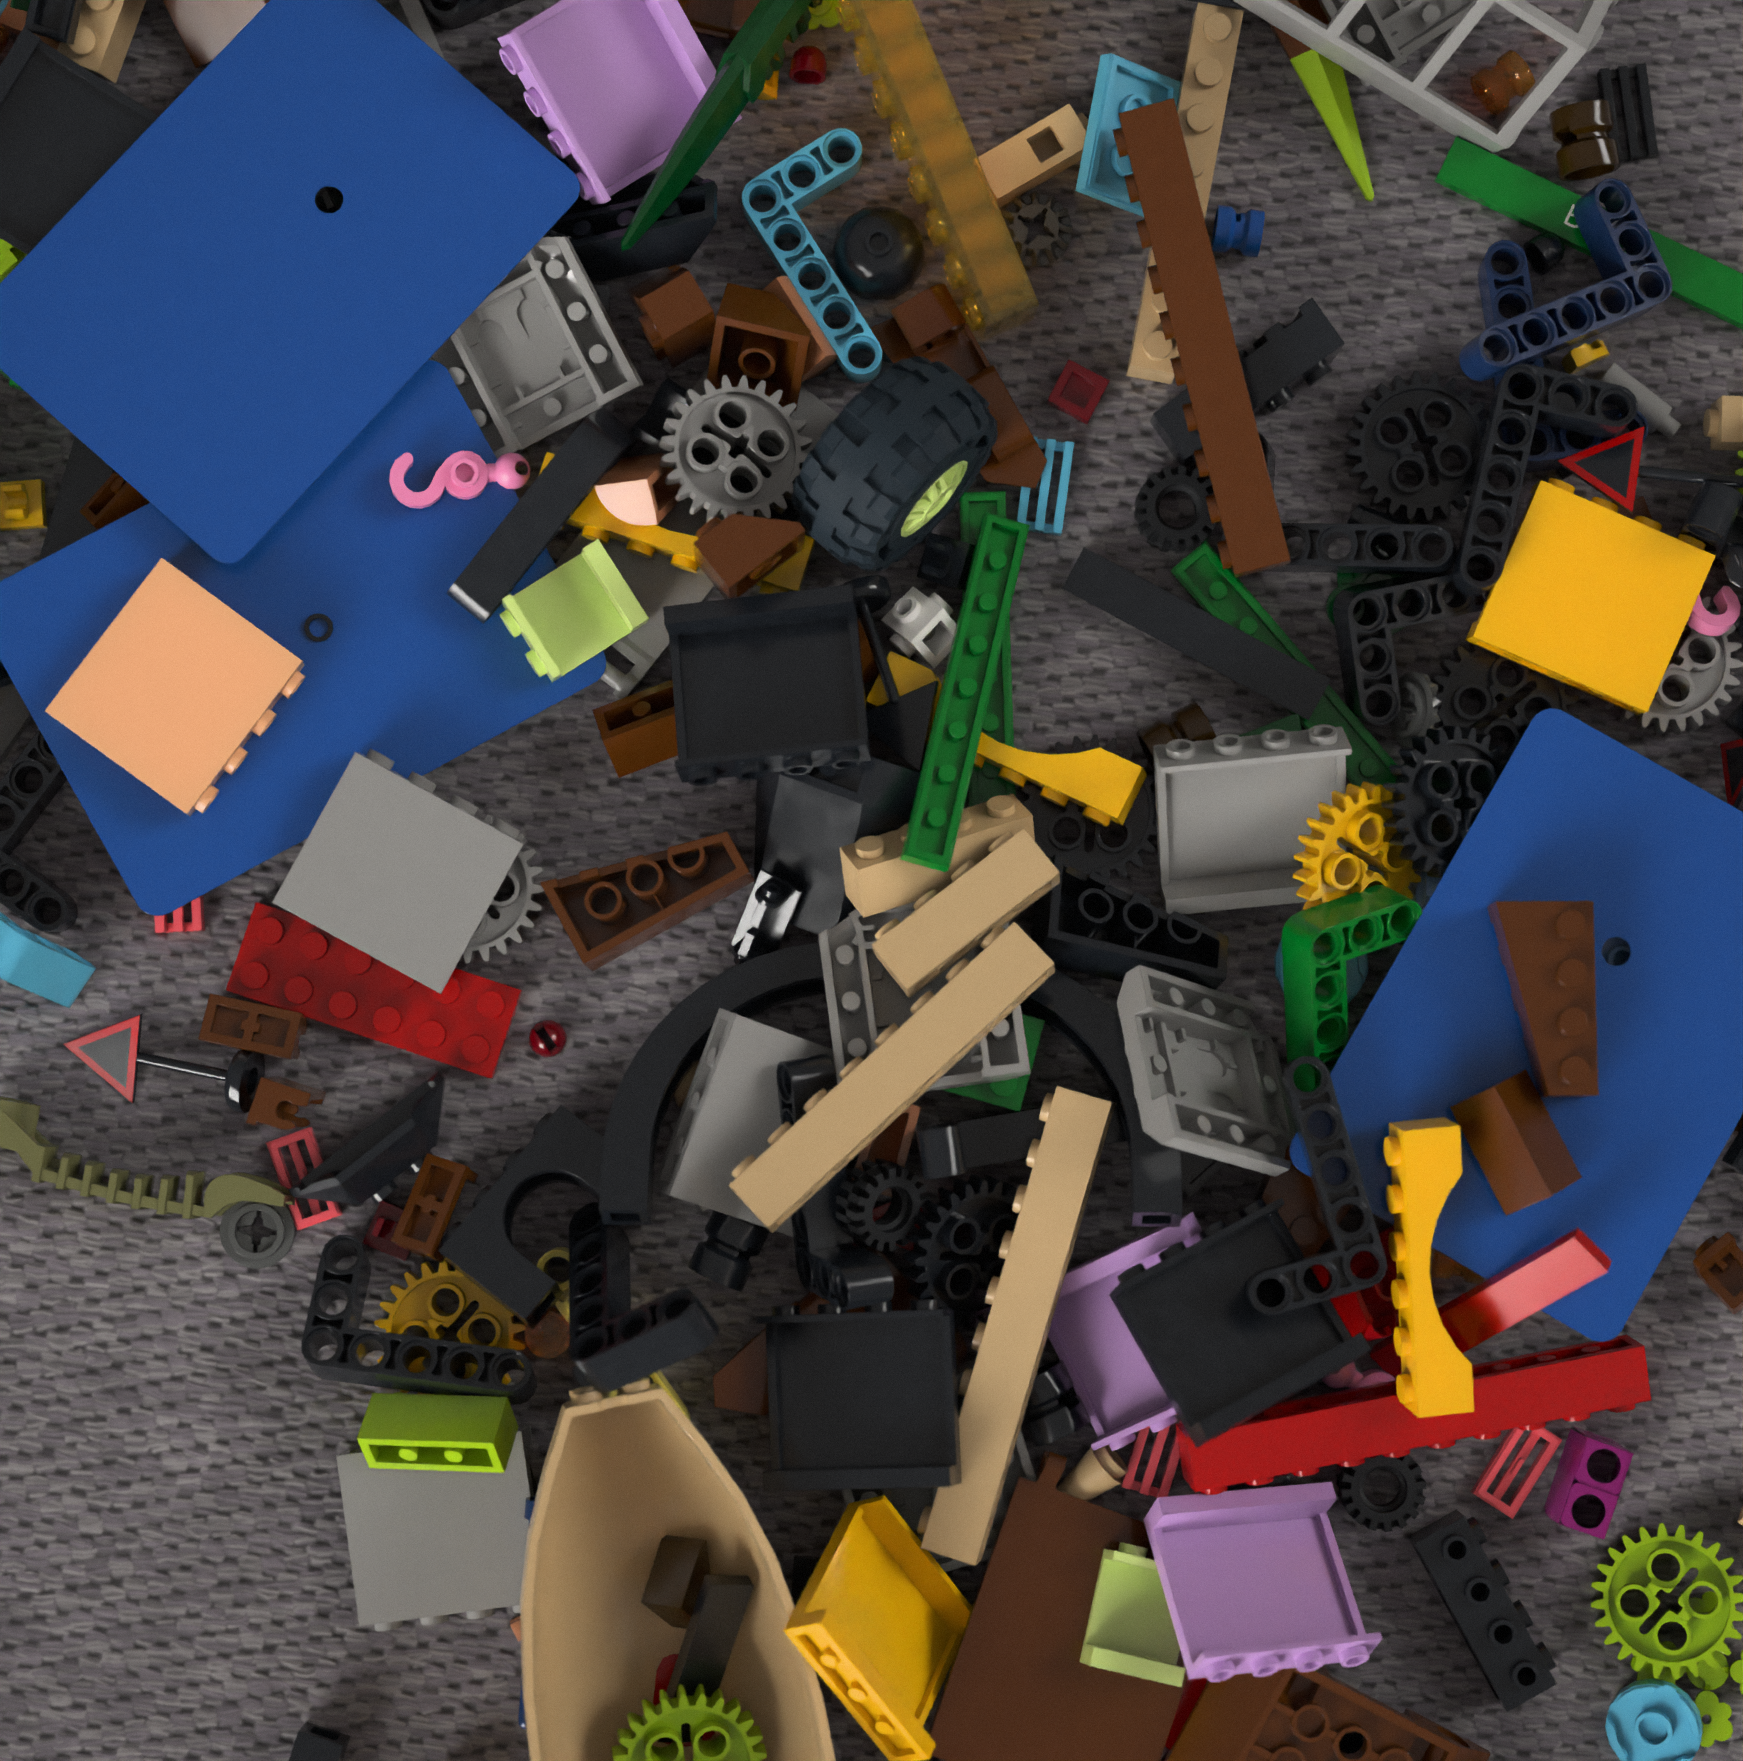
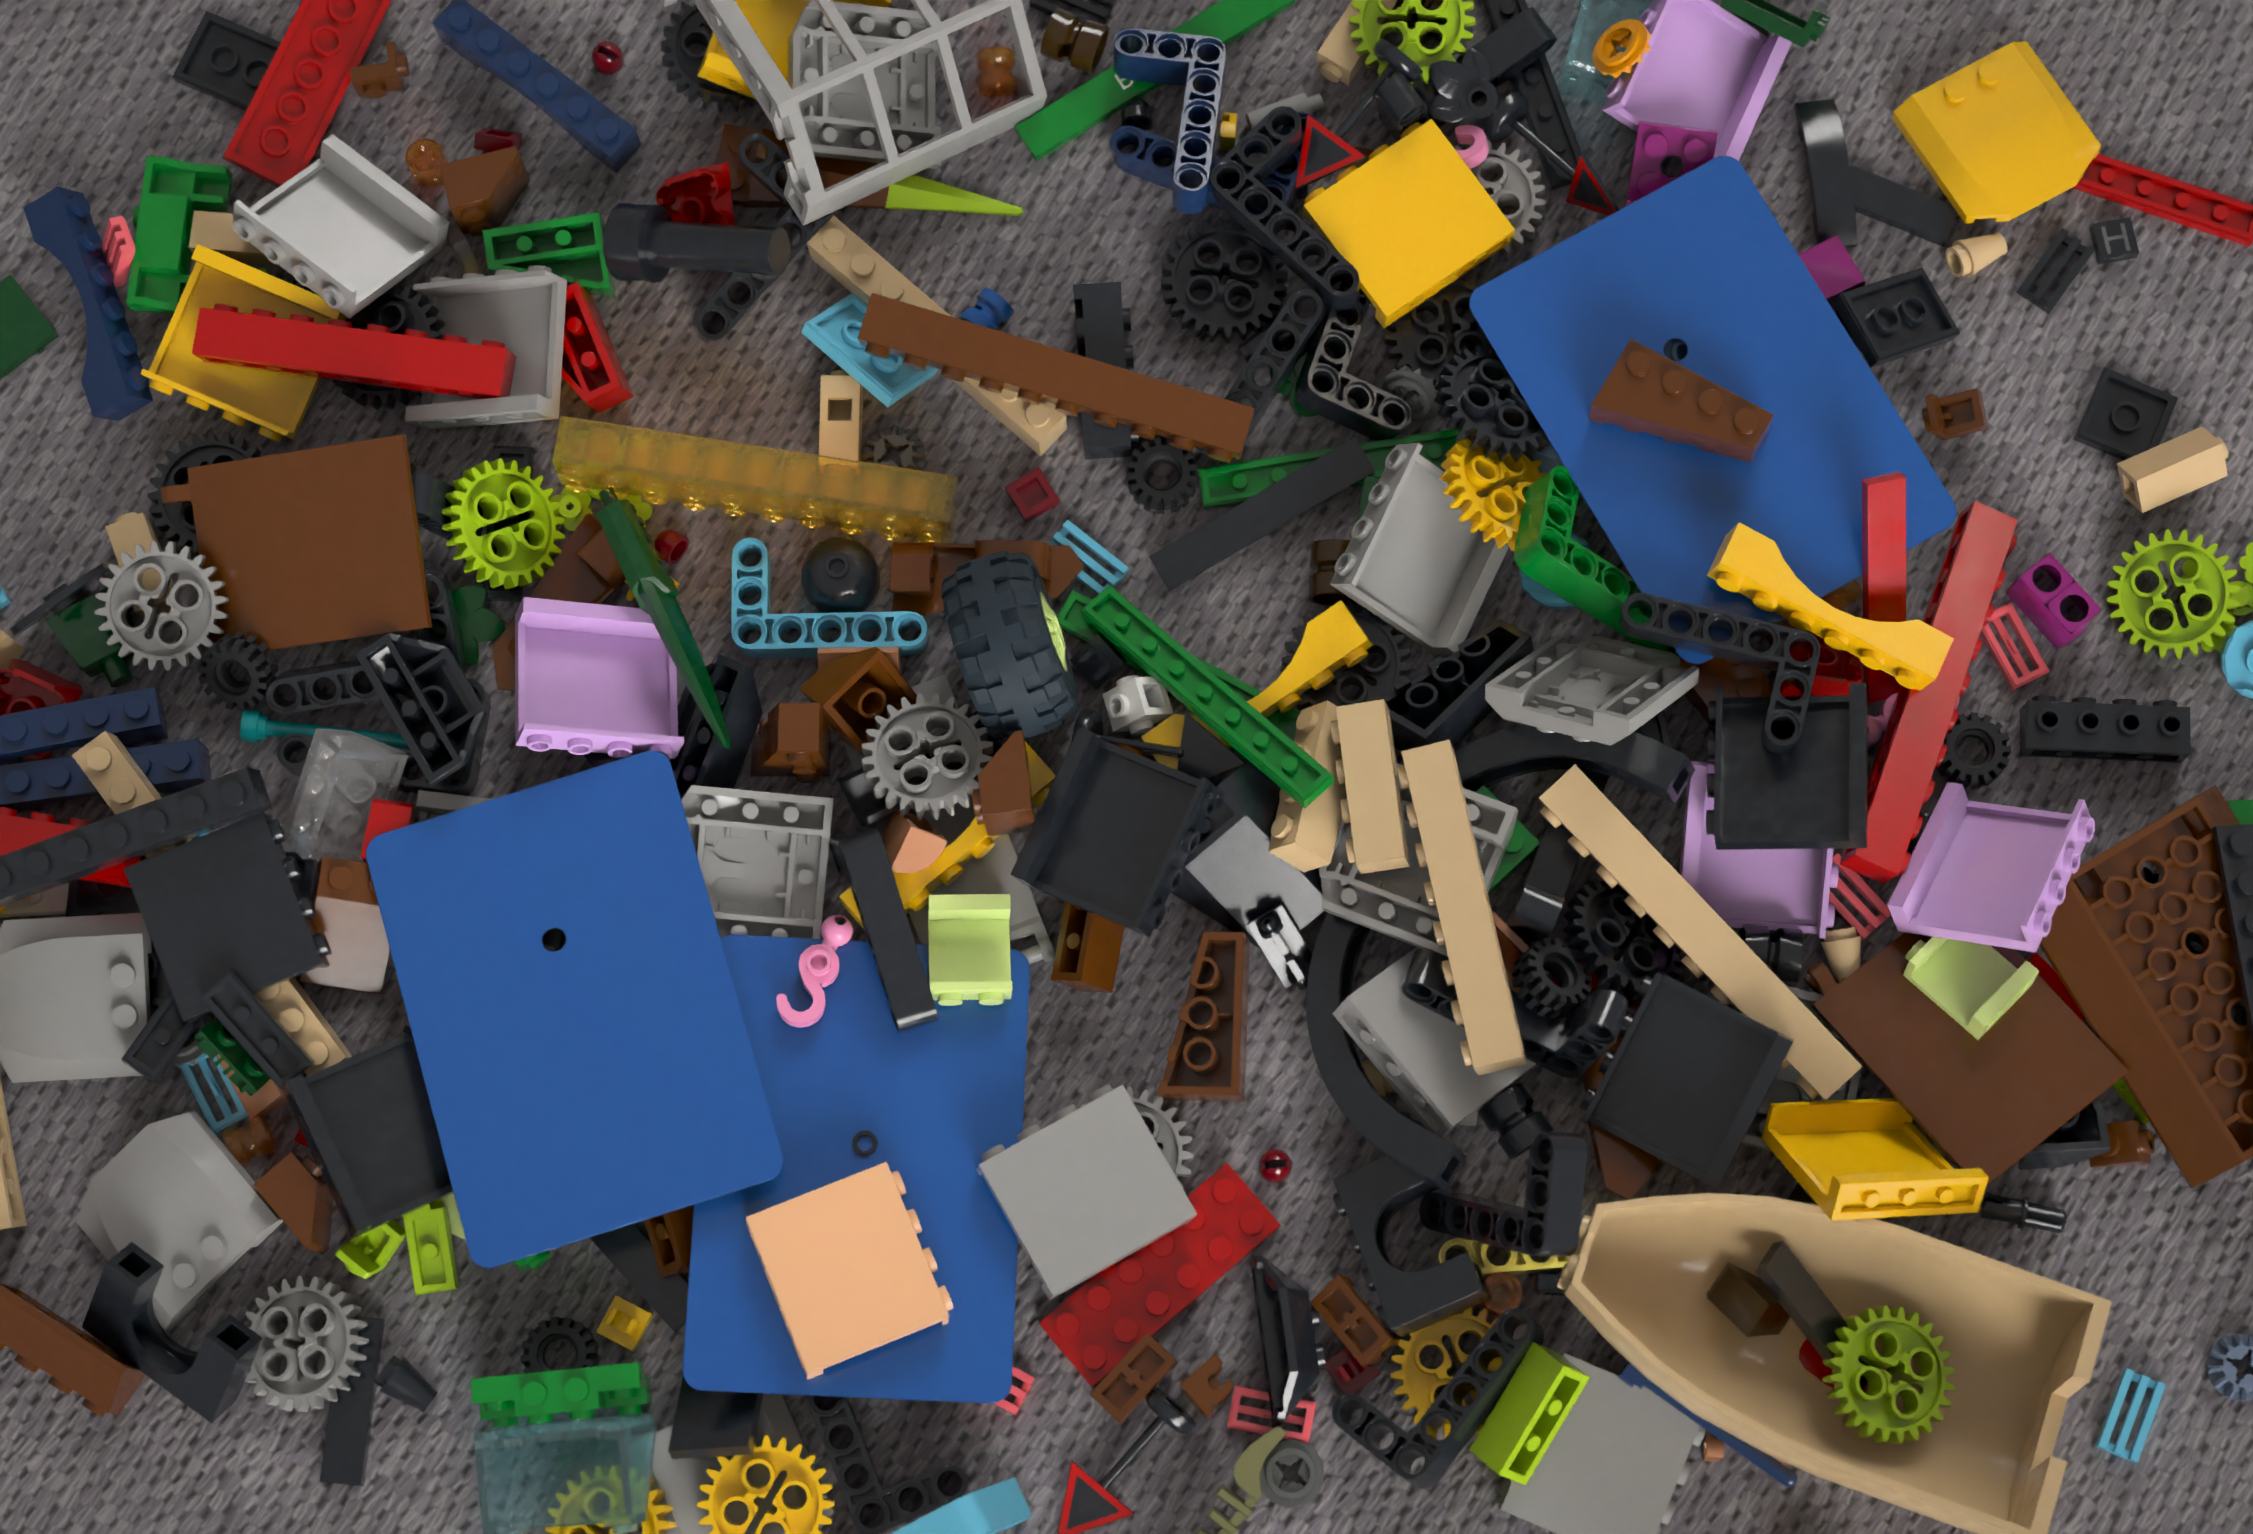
camera: 55 degrees left, 10 degrees down
(1516, 1142) = (1774, 495): reddish brown piece -> none

